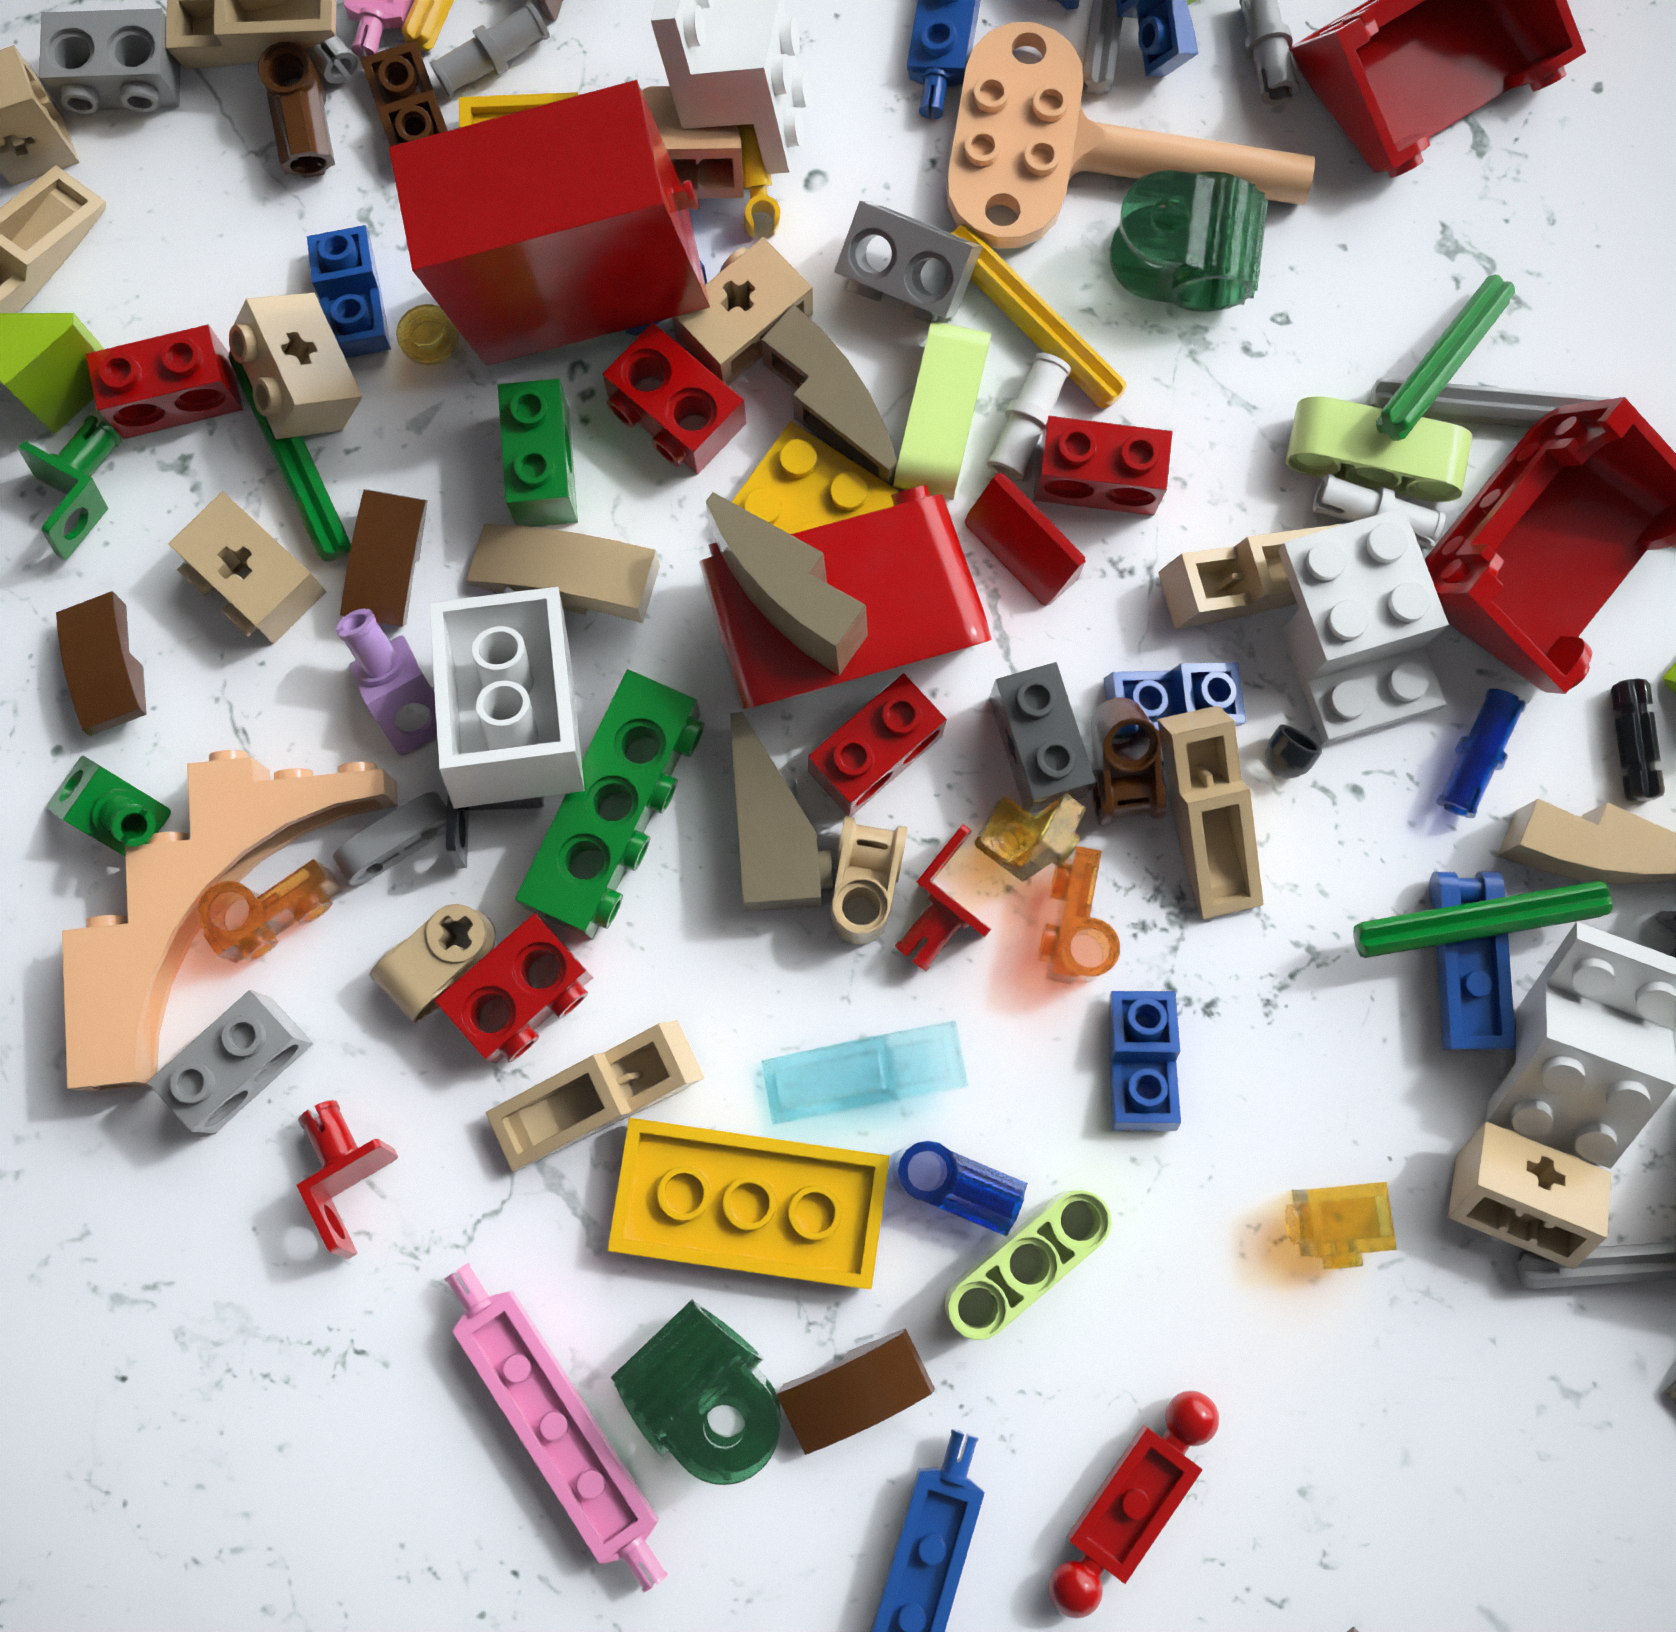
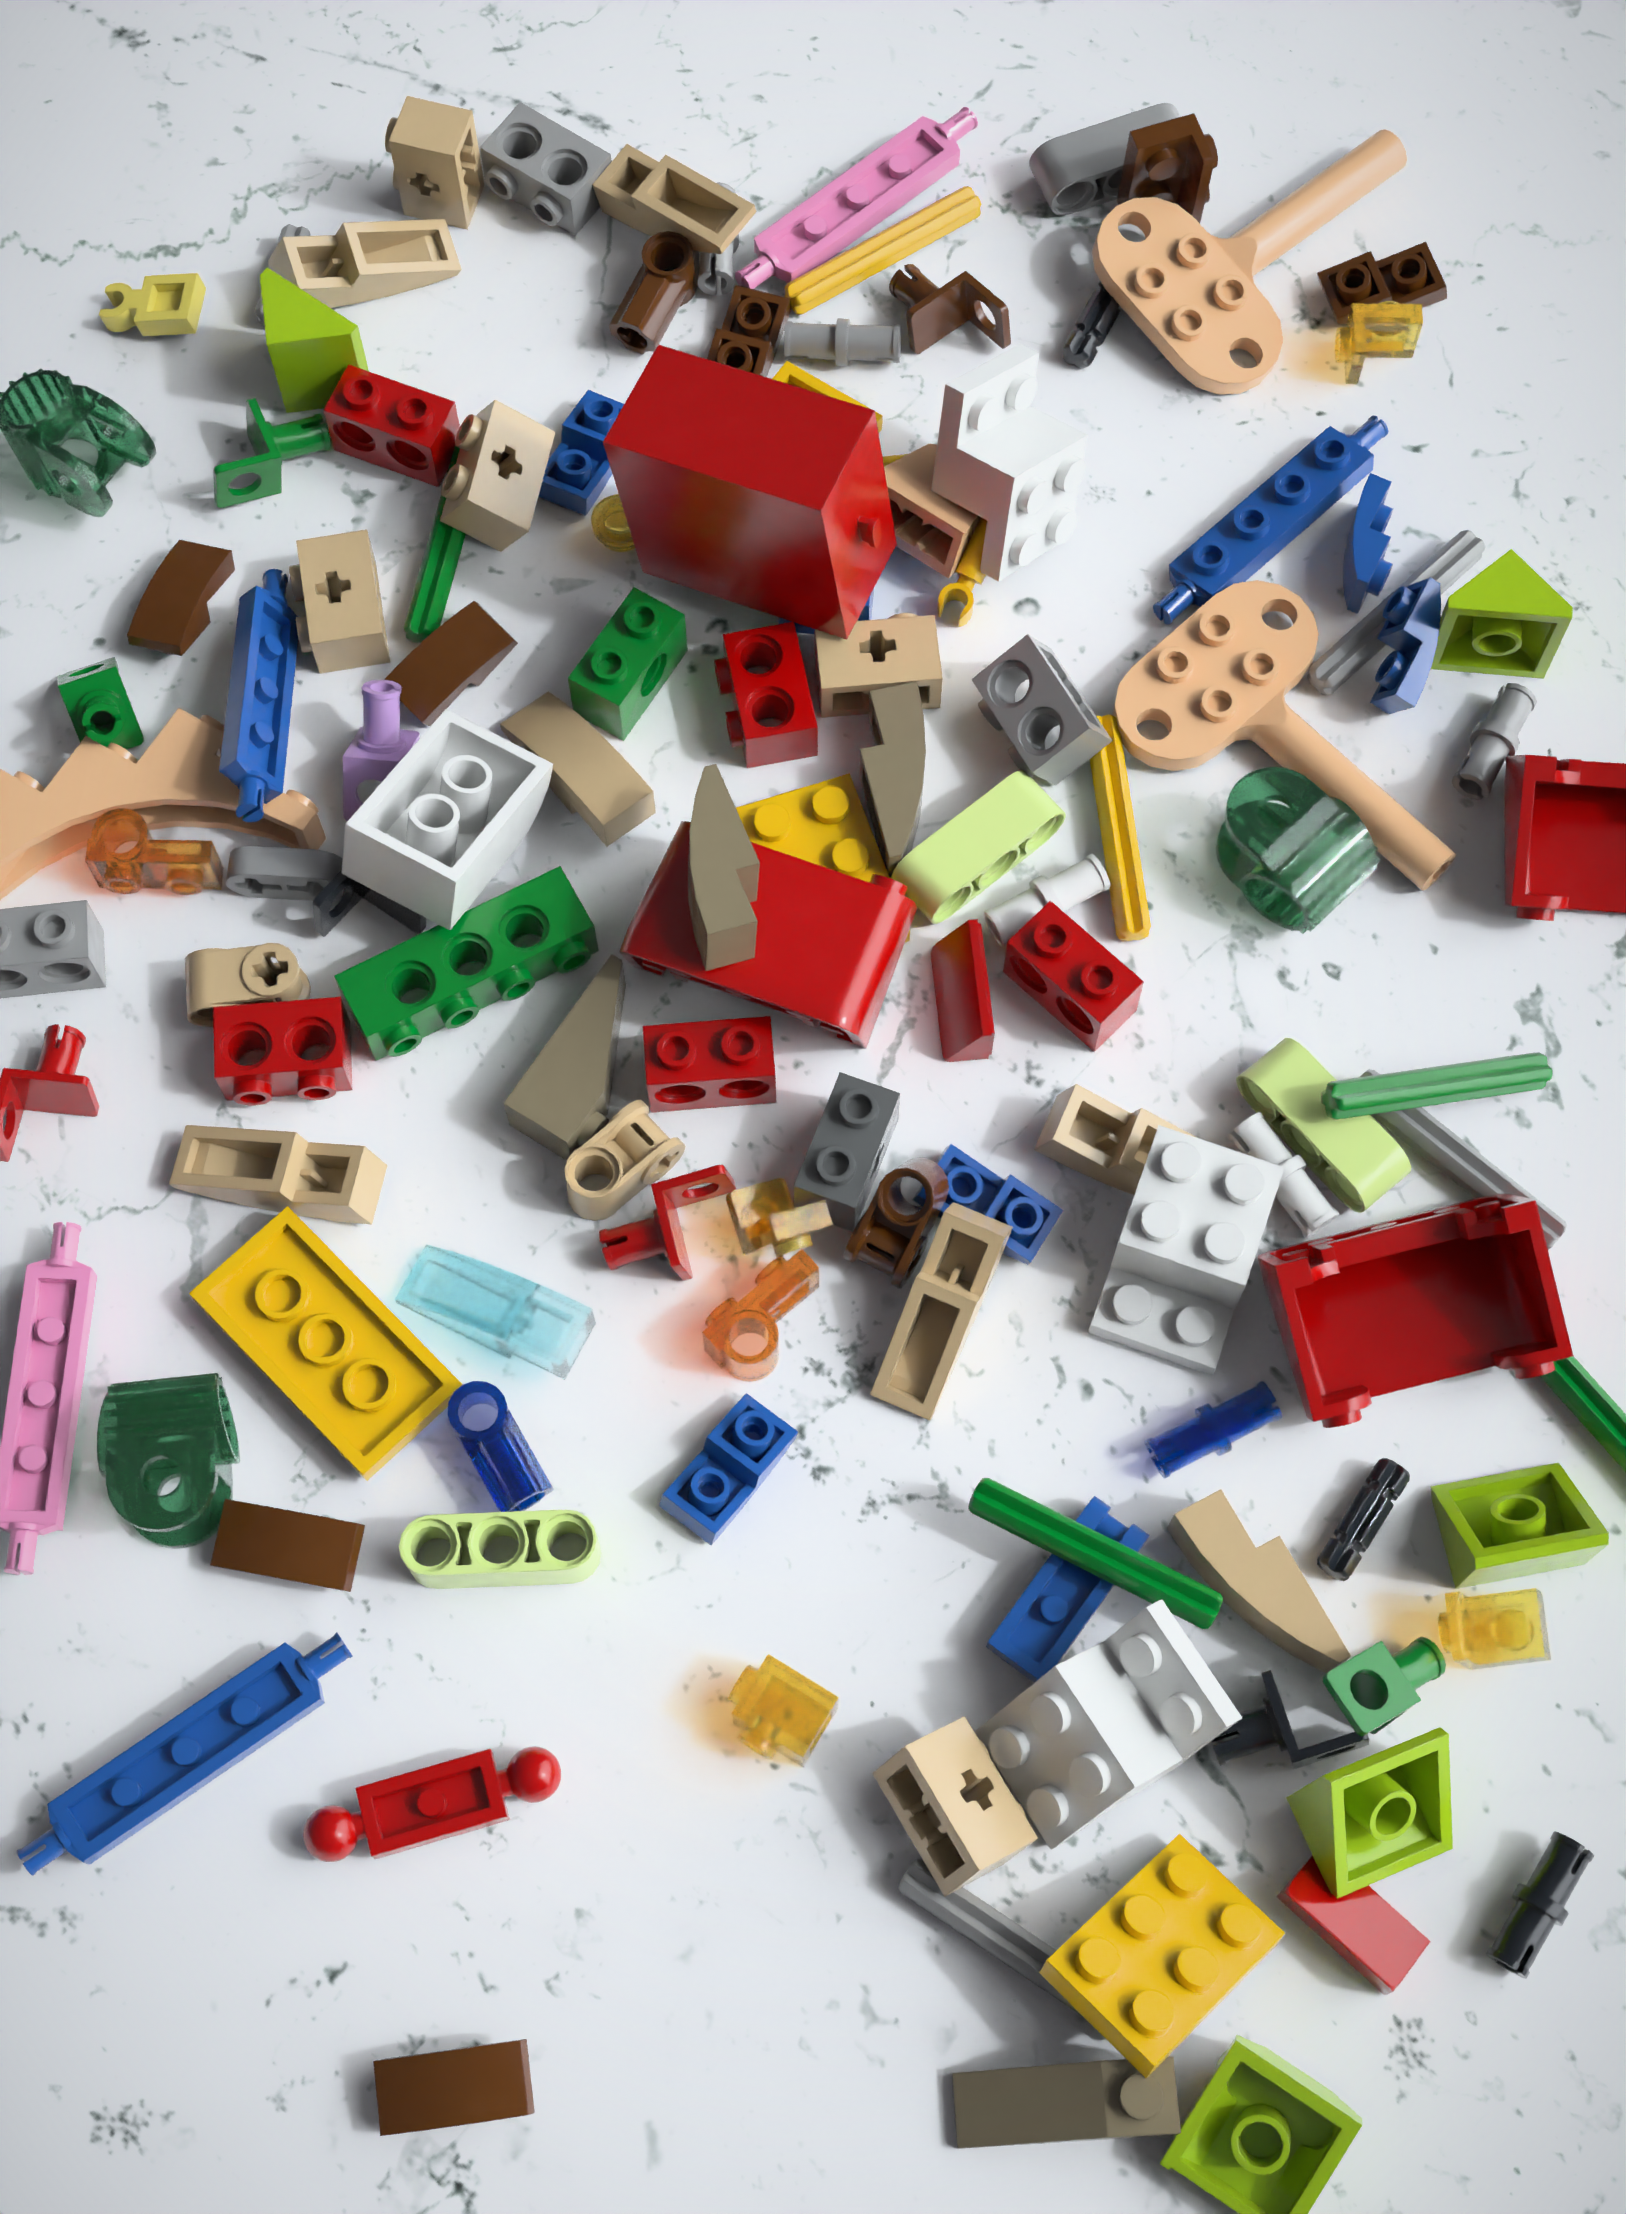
camera: 40 degrees right, 10 degrees down
(251, 702) = (260, 695): none -> blue plate
(1291, 752) = (1049, 1312): black hinge -> none

